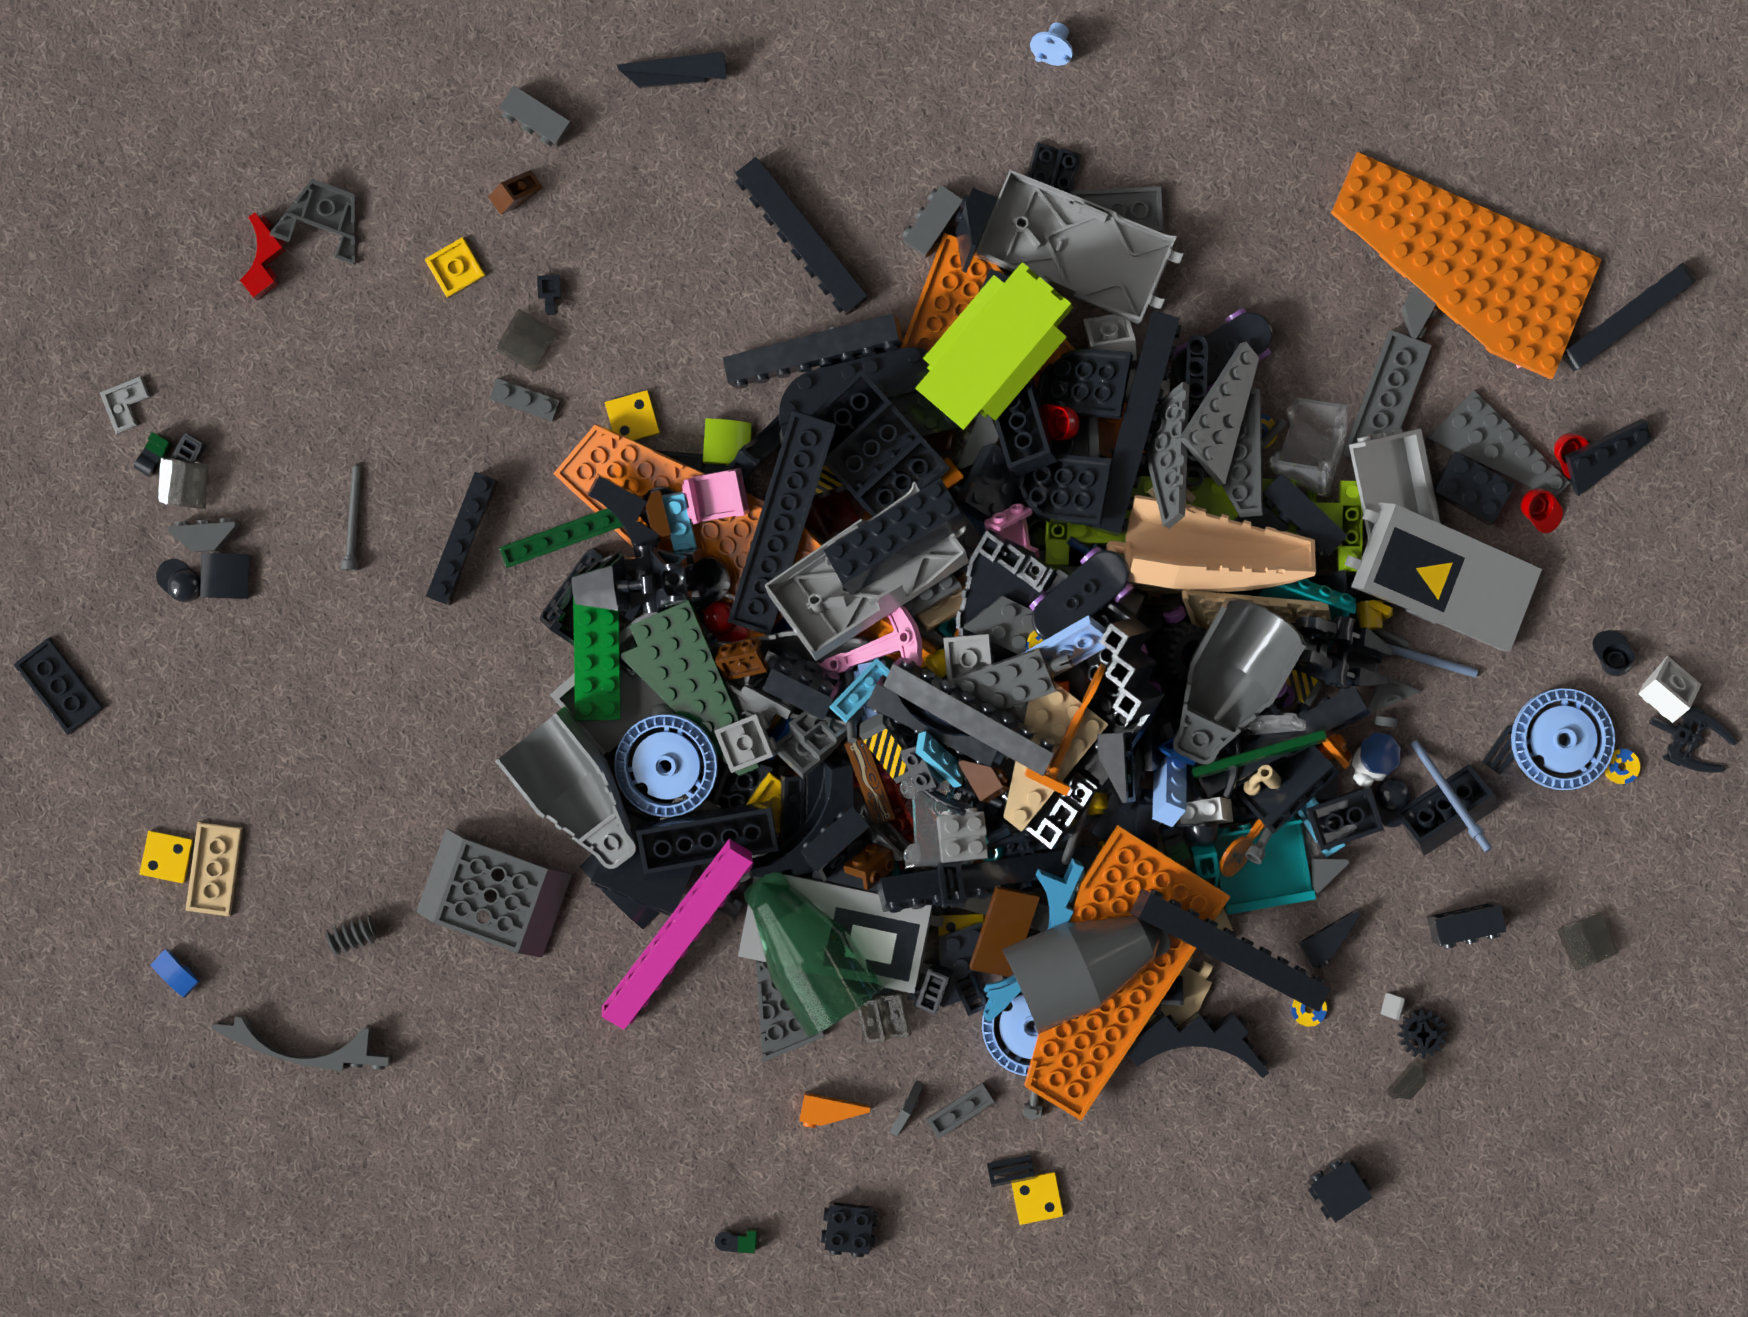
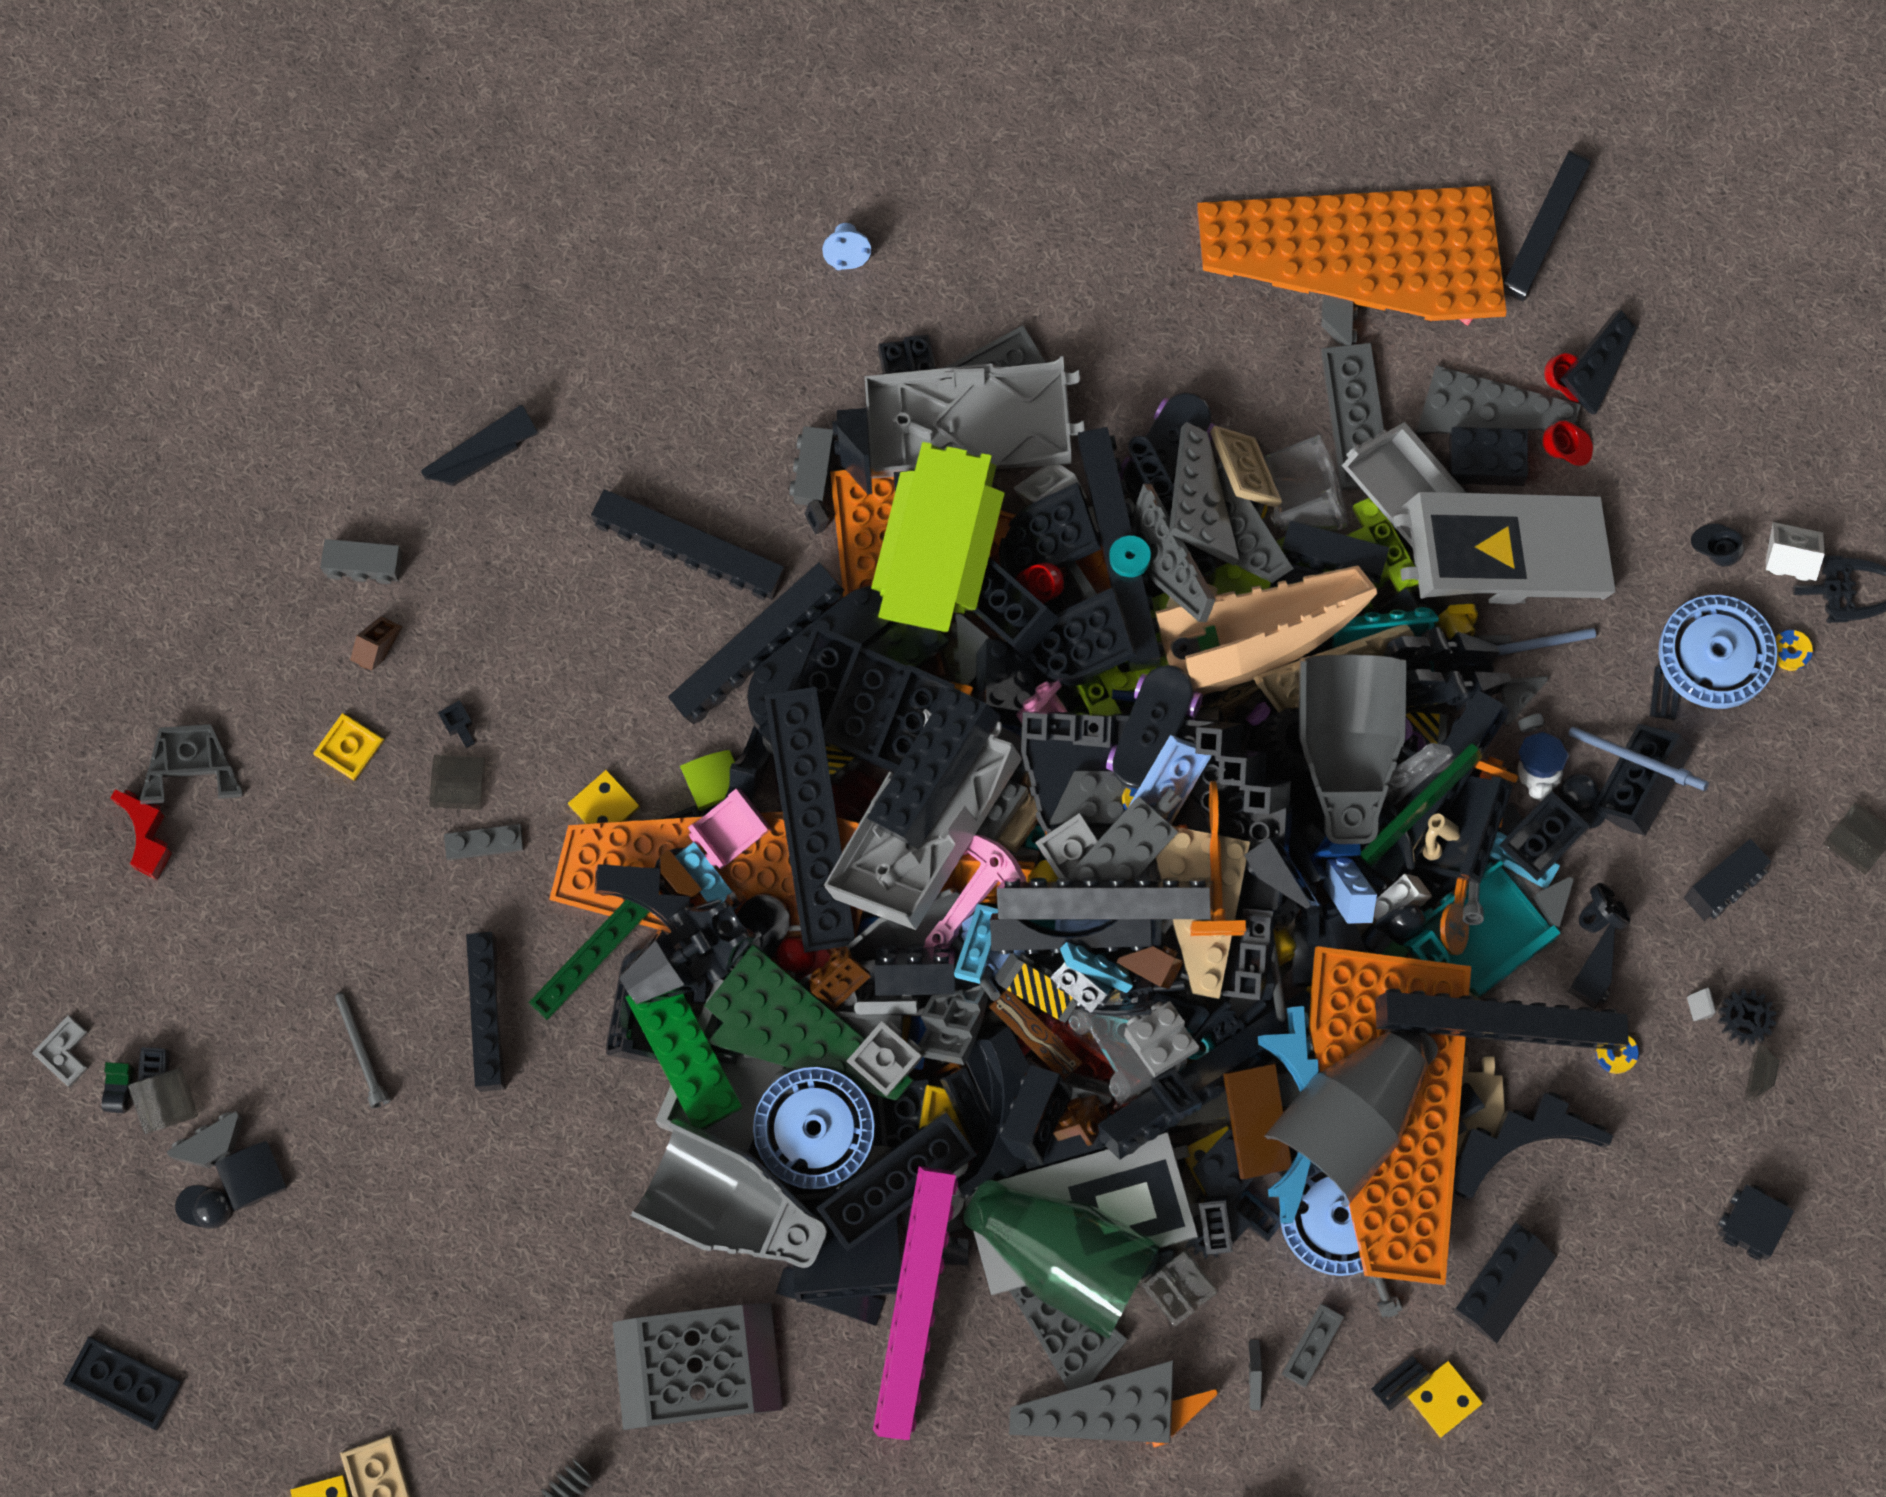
camera: 25 degrees left, 15 degrees down
(788, 1085) = (1117, 1409): none -> dark grey wing
(915, 265) = (817, 516): none -> black plate
(1127, 1137) = (1505, 1283): none -> black slope
(1136, 448) = (1130, 567): none -> teal piece
(1153, 537) = (1184, 646): none -> leg
(1274, 403) = (1245, 466): none -> tan tile
(1362, 899) = (1606, 910): none -> black tile

